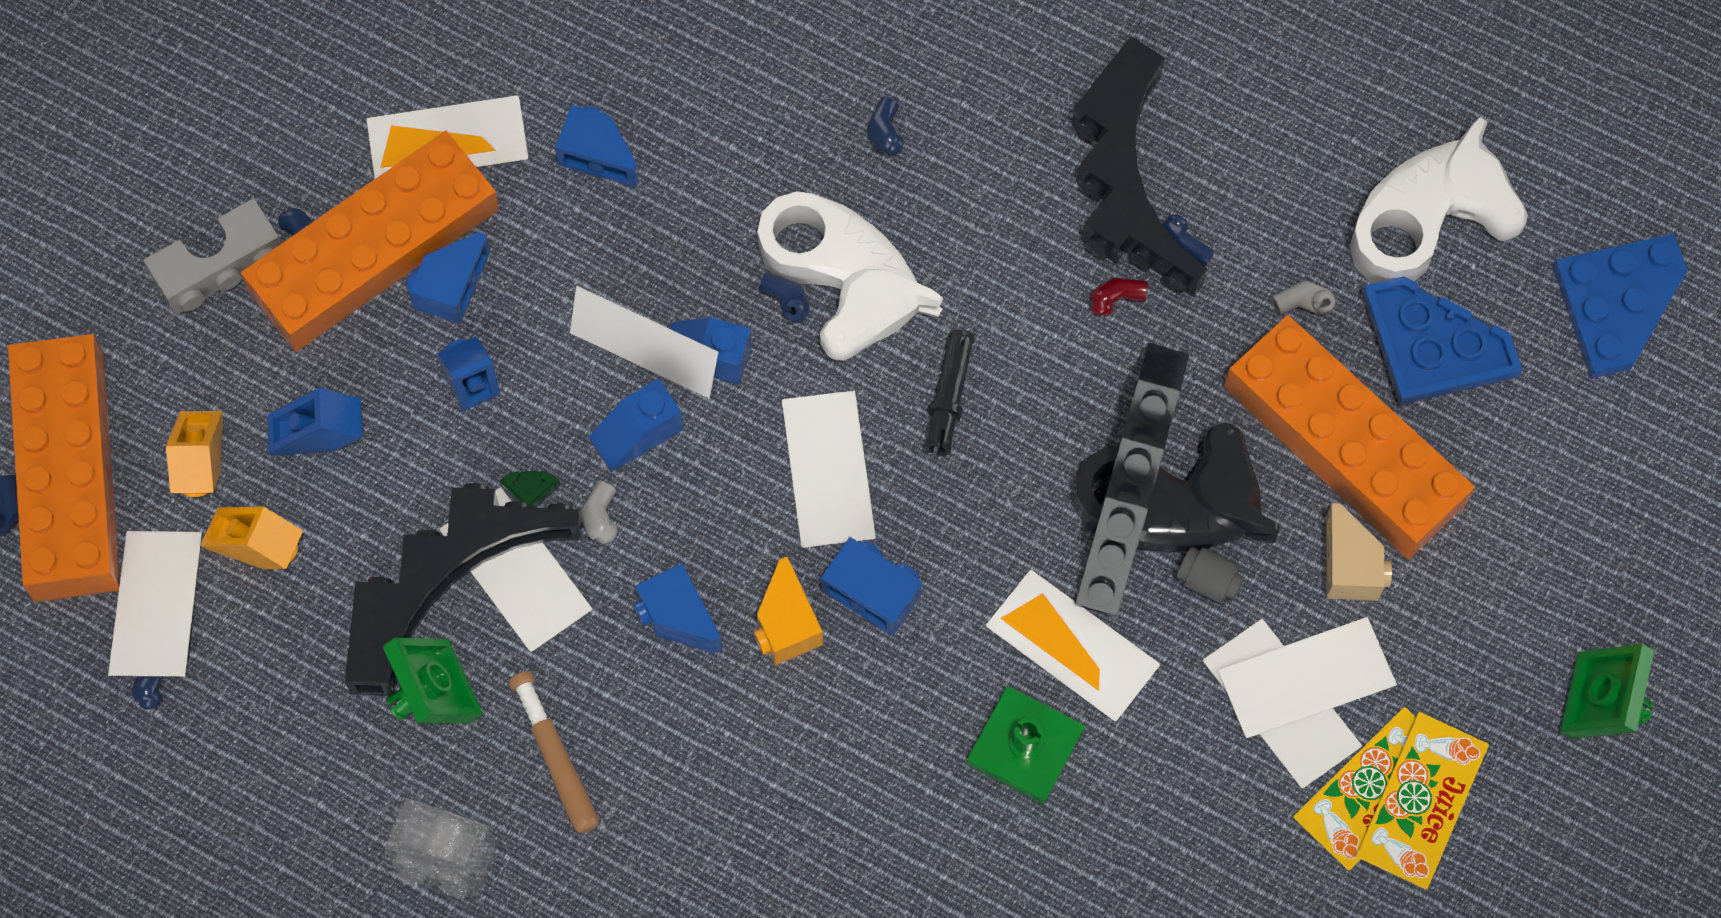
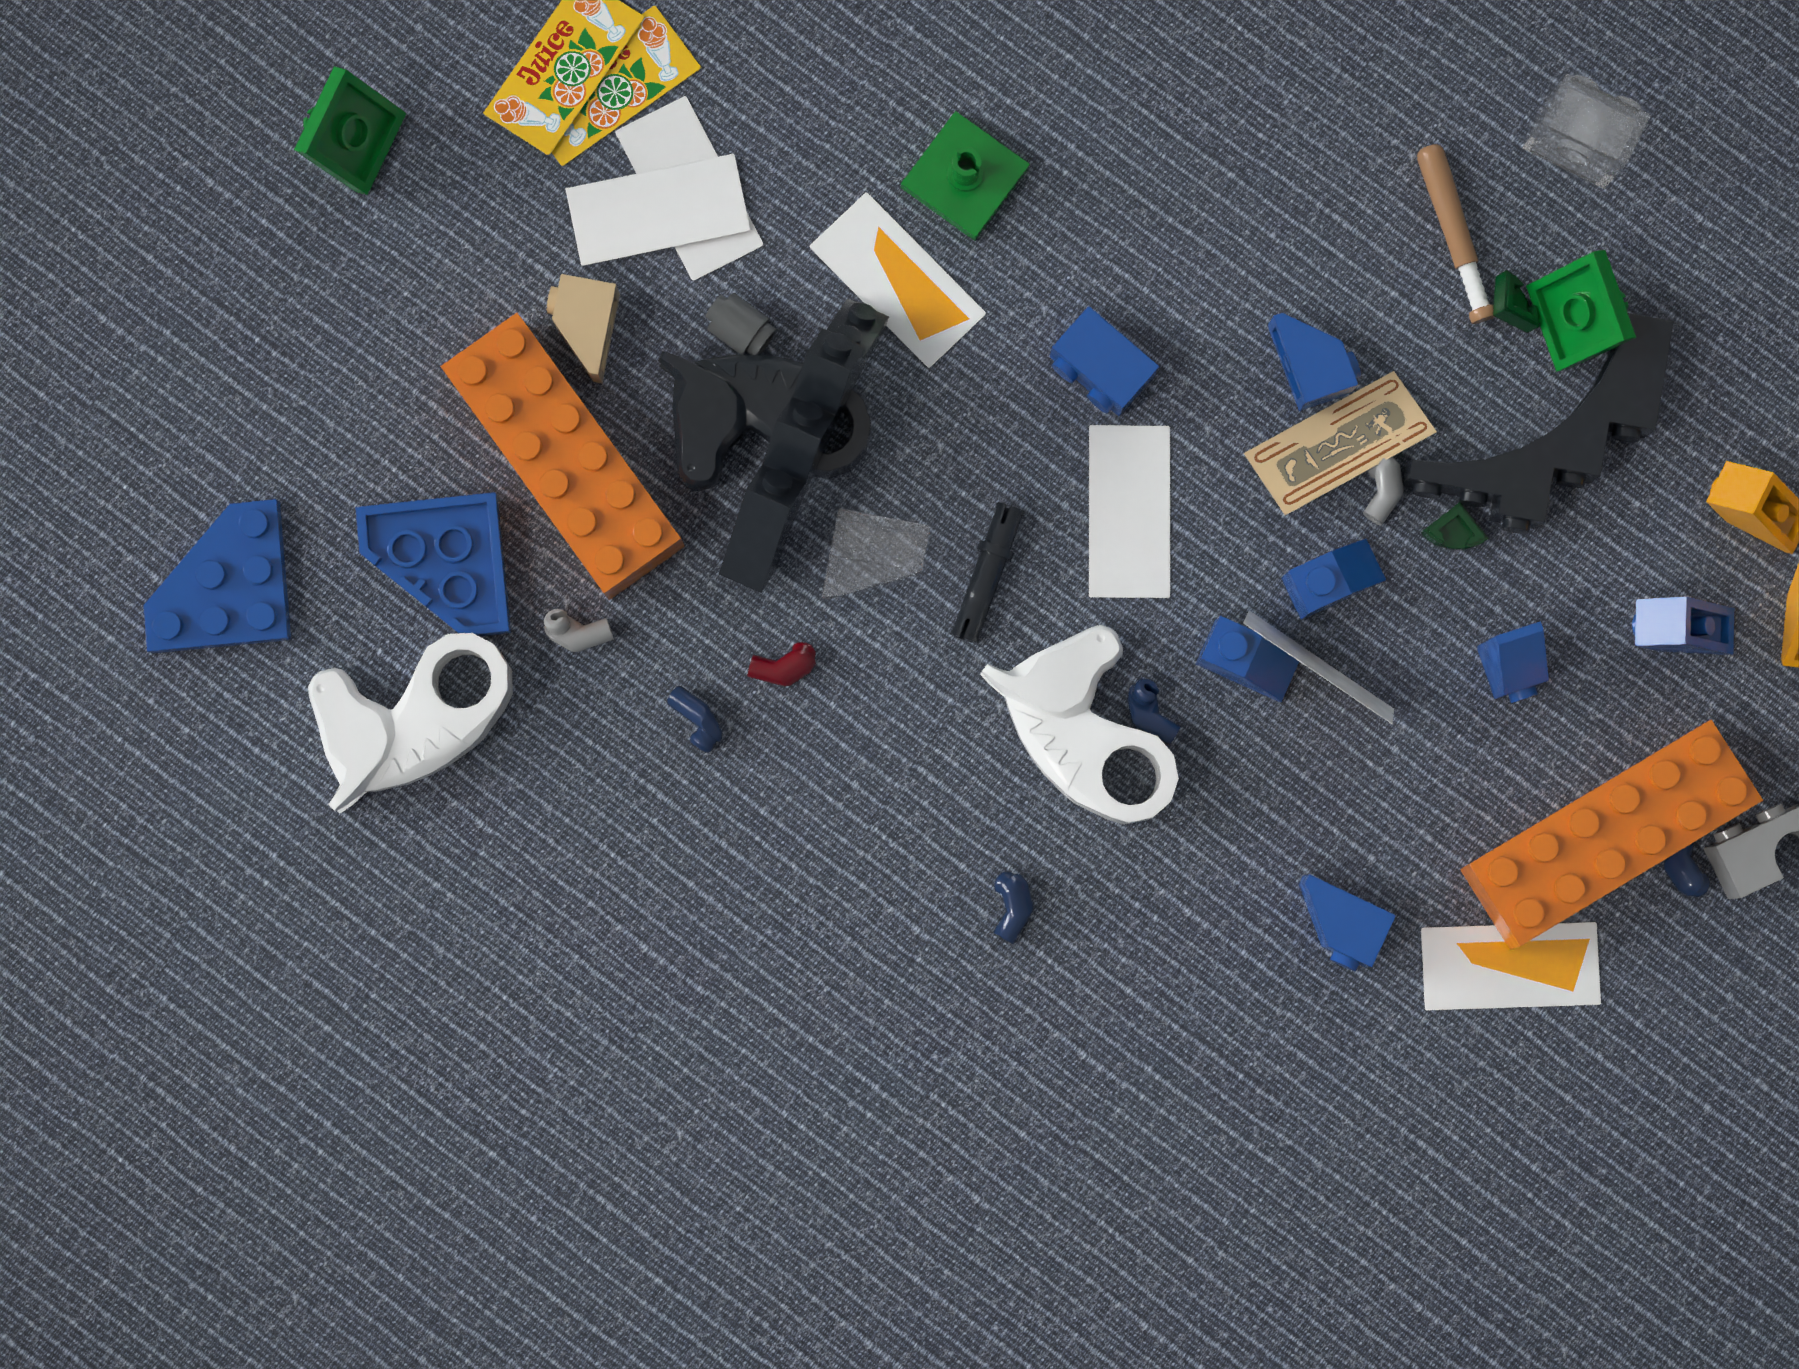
camera: 175 degrees left, 15 degrees up
(449, 278) = (1526, 778): blue slope -> none
(494, 693) = (1512, 305): none -> dark green tile
(530, 590) = (1466, 420): white sticker -> none
(641, 544) = (1339, 443): none -> tan sticker
(786, 618) = (1197, 338): light orange slope -> none
(1055, 397) = (872, 552): none -> clear wing
(1111, 172) = (760, 749): black arch -> none

